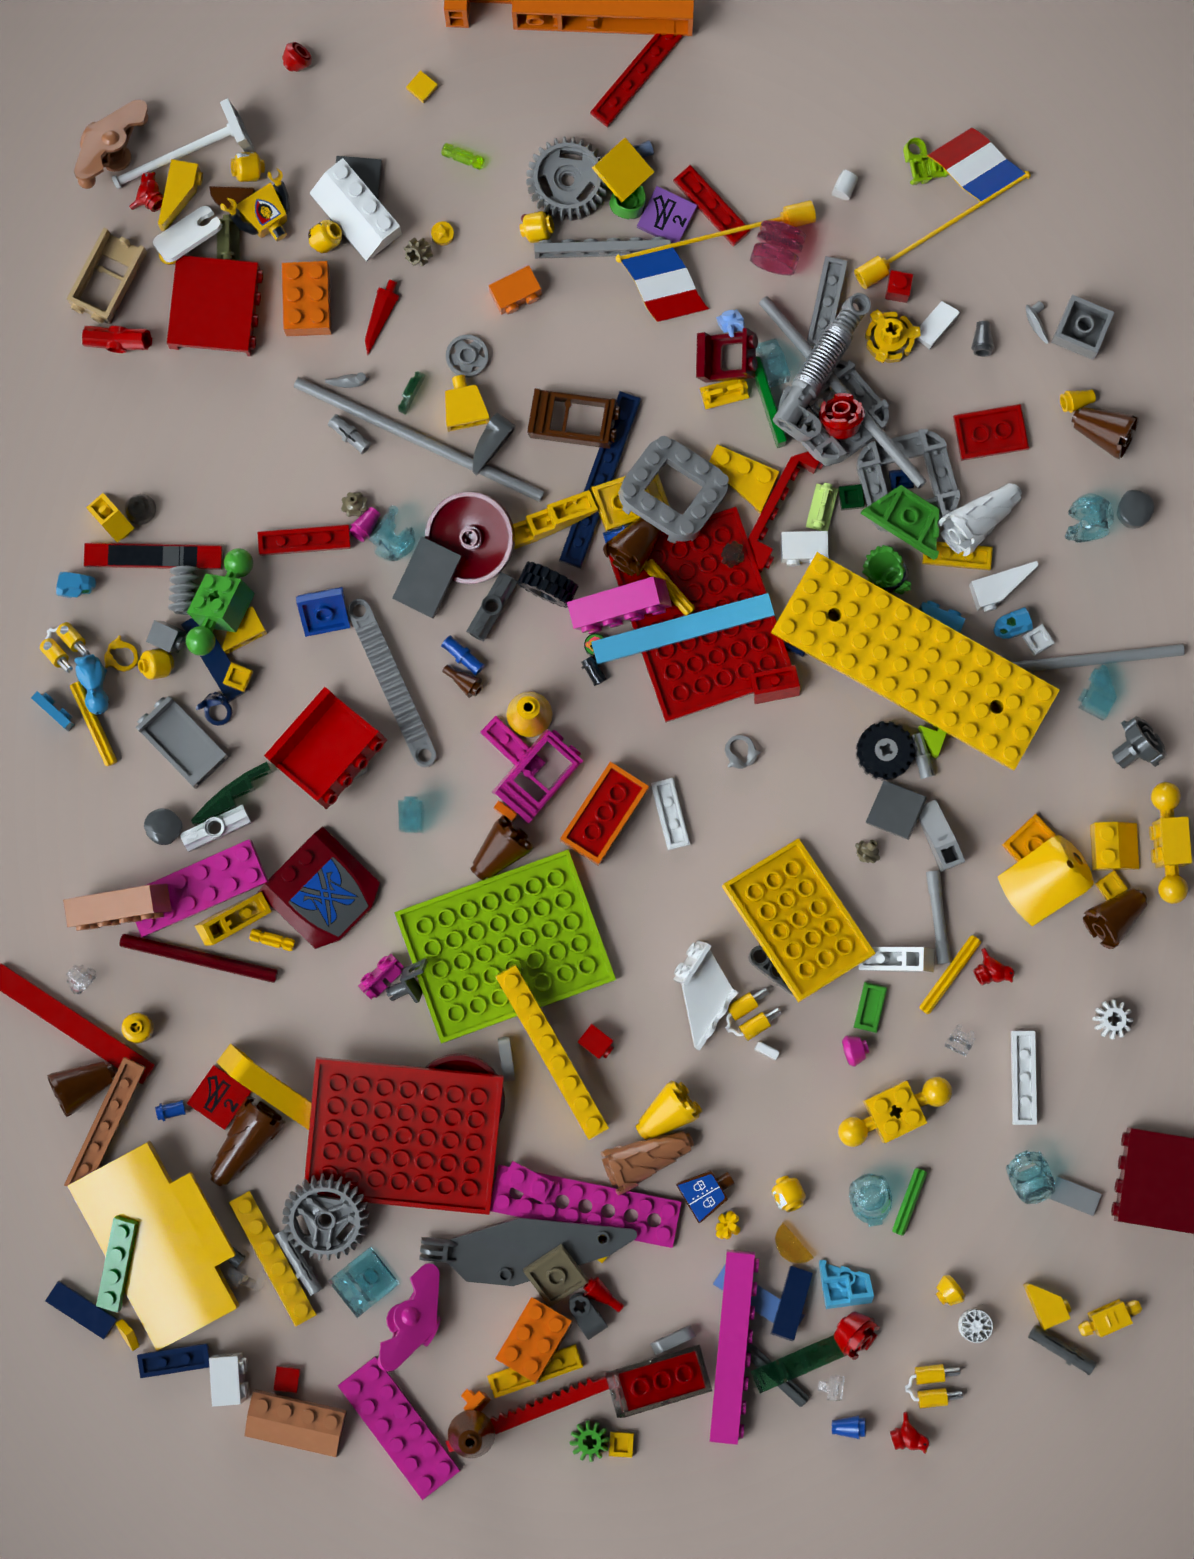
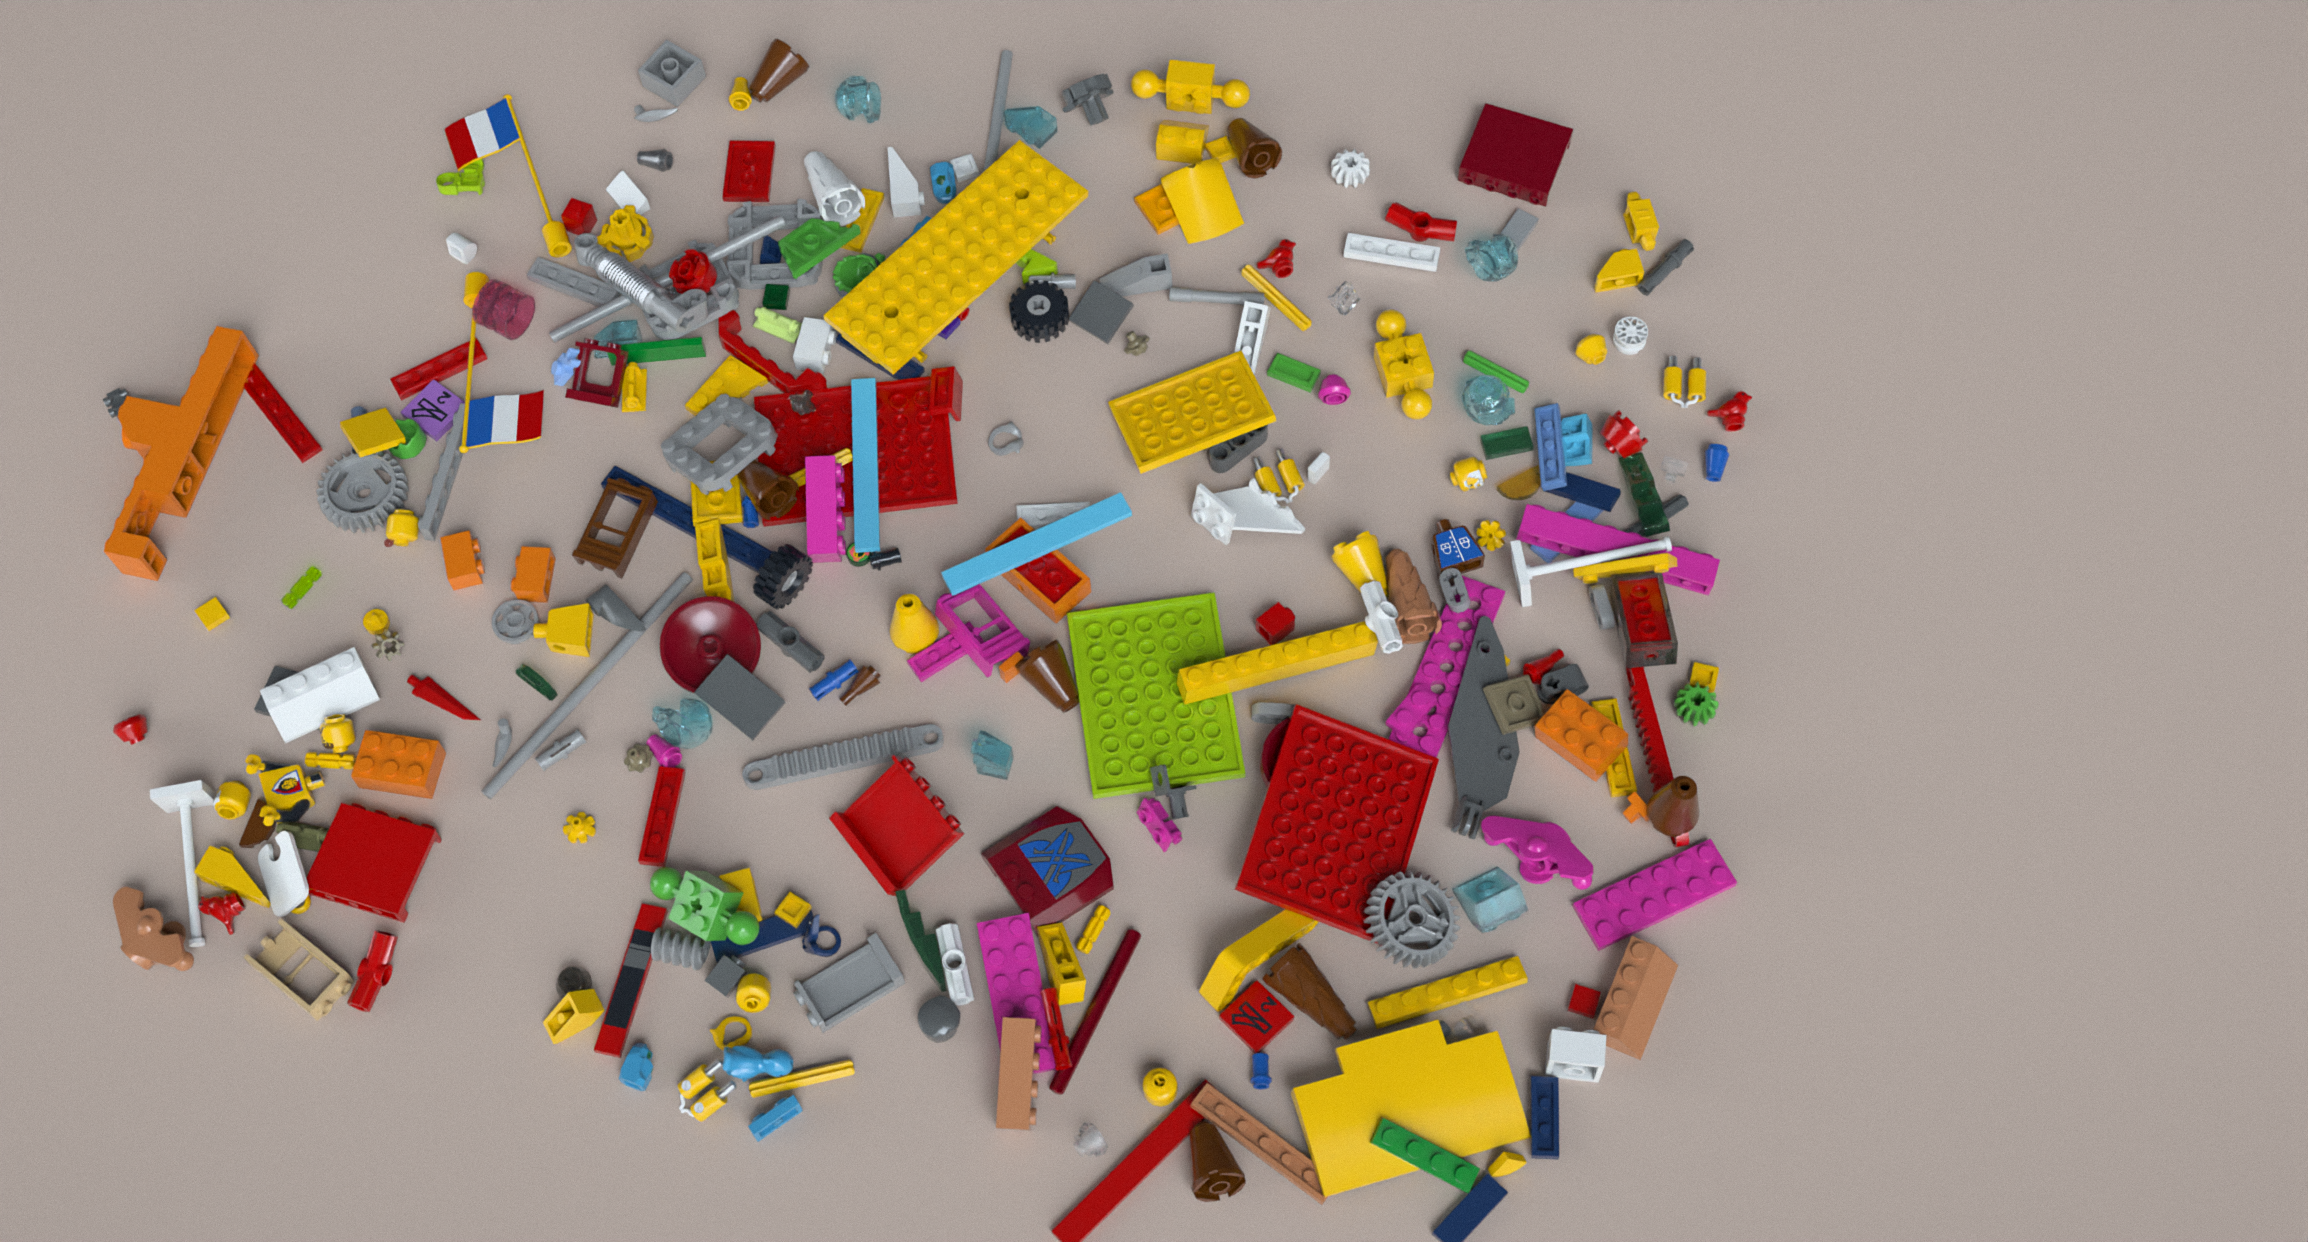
camera: 75 degrees left, 20 degrees down
(143, 939) = (1059, 1042): none -> red pin
(285, 474) = (579, 828): none -> yellow plant
(298, 1262) = (1456, 964): light grey pin -> none
(302, 237) = (330, 760): none -> yellow axle
(323, 611) = (745, 807): blue bracket -> none
(513, 358) = (533, 574): none -> orange brick
(609, 1138) = (1381, 617): none -> white piece
(622, 808) = (1036, 544): none -> medium azure tile
(656, 1196) = (1458, 588): none -> light grey beam
(687, 1263) = (1524, 573): none -> white tile
(703, 1327) = (1659, 563): none -> yellow plate
(833, 1224) = (1506, 443): none -> clear green tile
(833, 1267) = (1550, 447): none -> medium blue tile
(1060, 1117) = (1410, 221): none -> red piece
(1135, 509) = (862, 62): dark grey hair -> none

